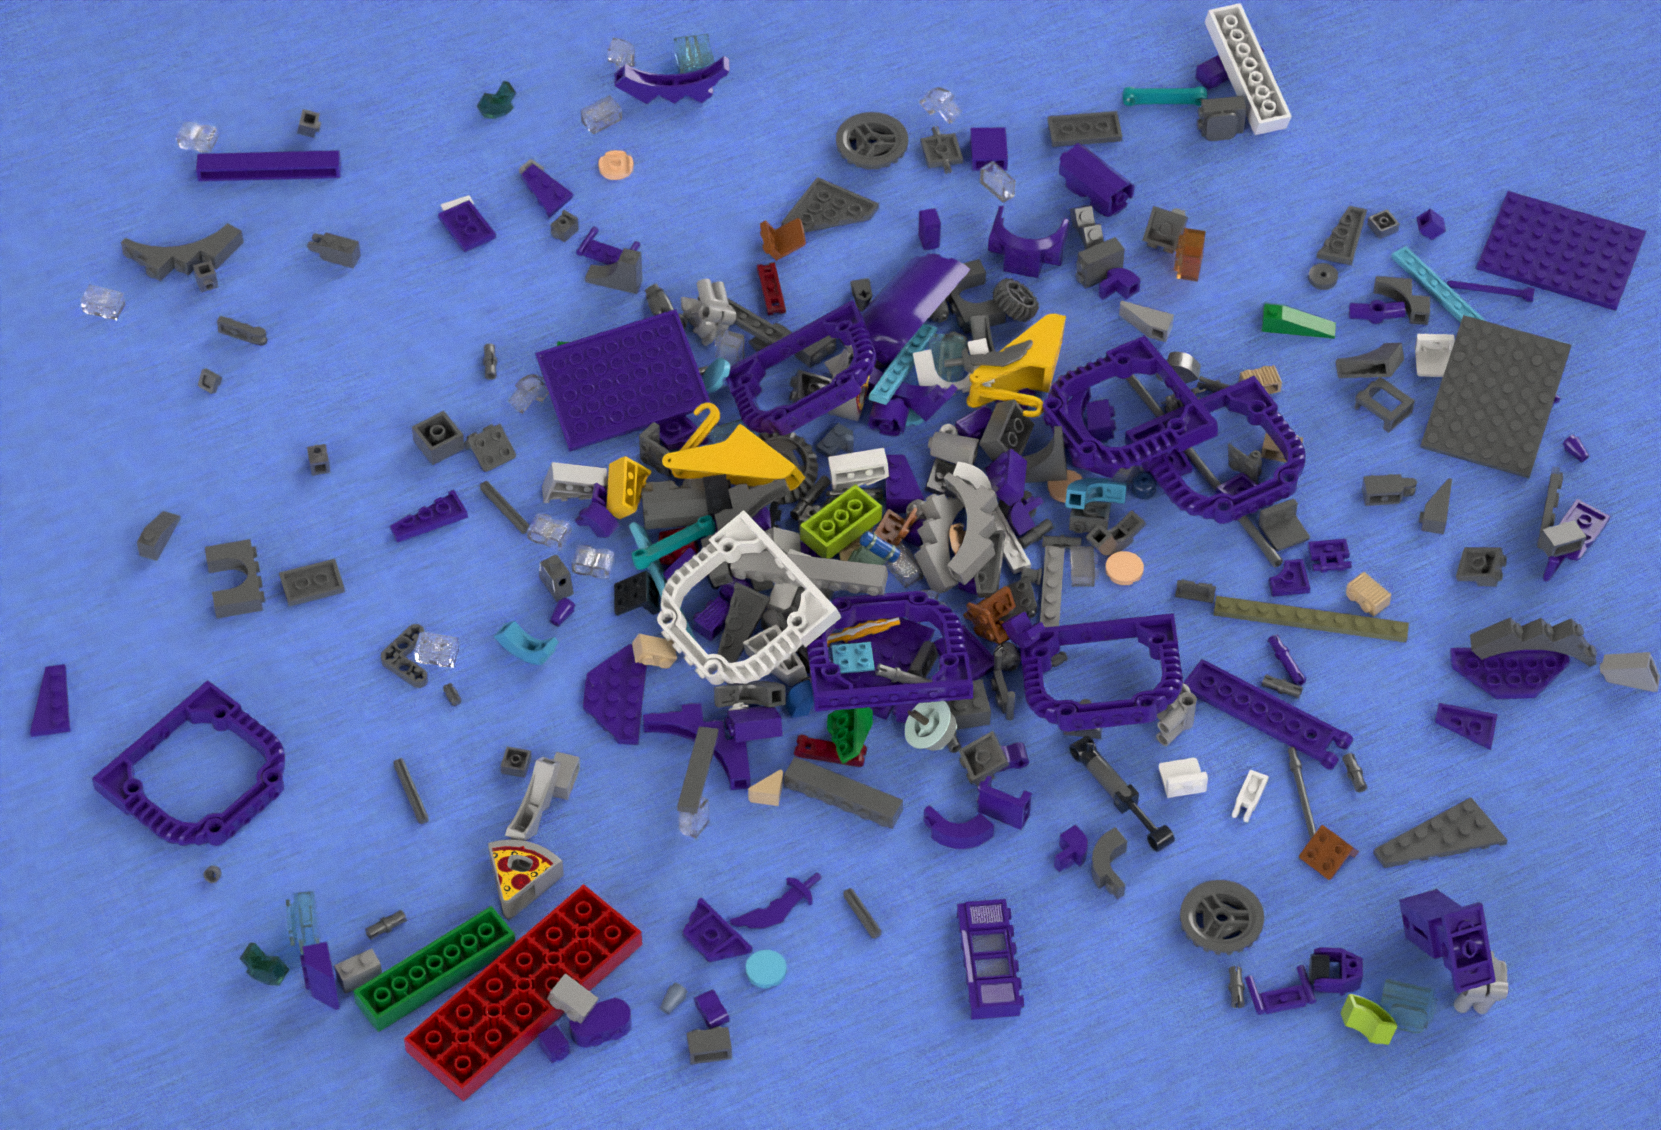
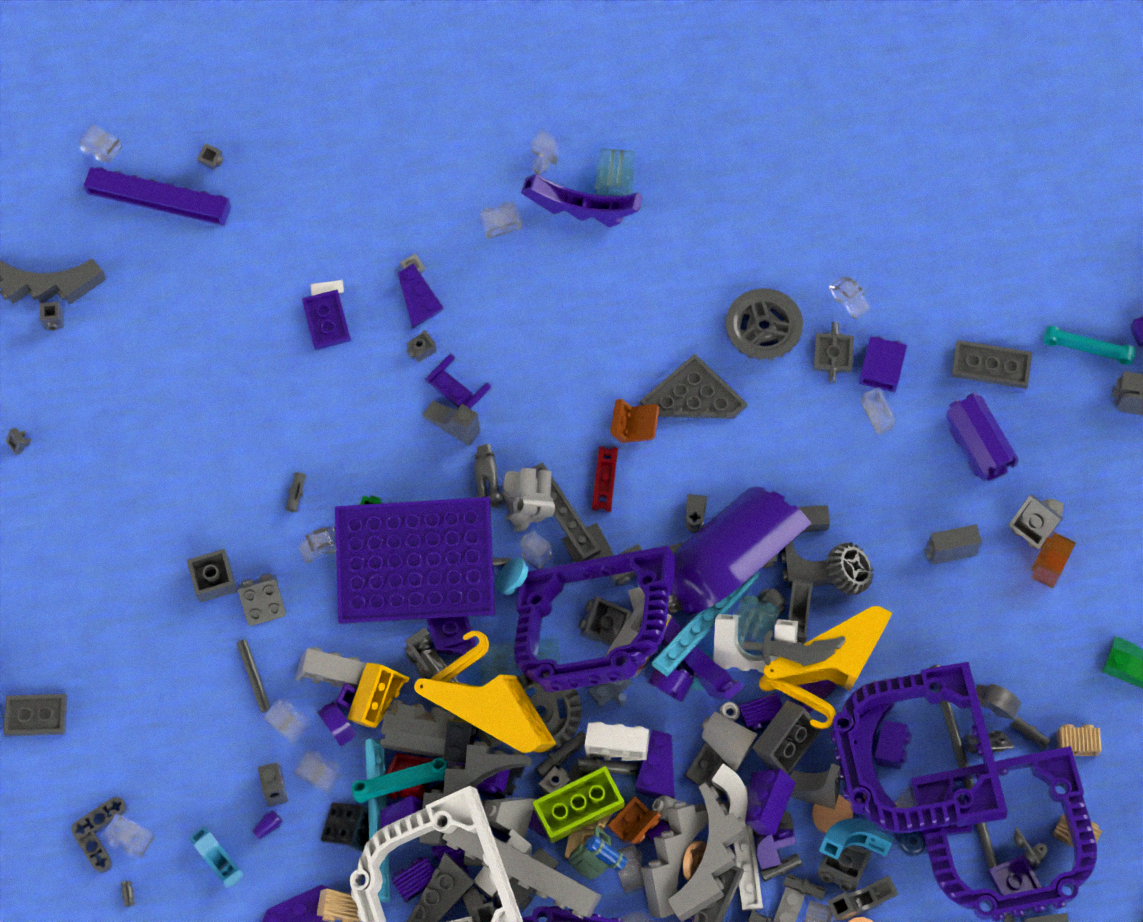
camera: 20 degrees right, 15 degrees up
(242, 331) = (67, 389): dark grey hinge -> none
(318, 459) = (89, 566): flat silver brick -> none
(336, 249) = (189, 315): dark grey hinge -> none
(441, 513) = (185, 667): dark purple wing -> none
(497, 104) = (402, 179): brick -> none
(615, 165) = (498, 282): light nougat tile -> none
(929, 229) = (788, 453): dark purple brick -> none
(1026, 255) = (877, 511): dark purple piece -> none
(1084, 222) = (954, 496): arch -> none
(1119, 280) = (970, 569): dark purple brick -> none
(1149, 321) = (985, 631): light grey slope -> none

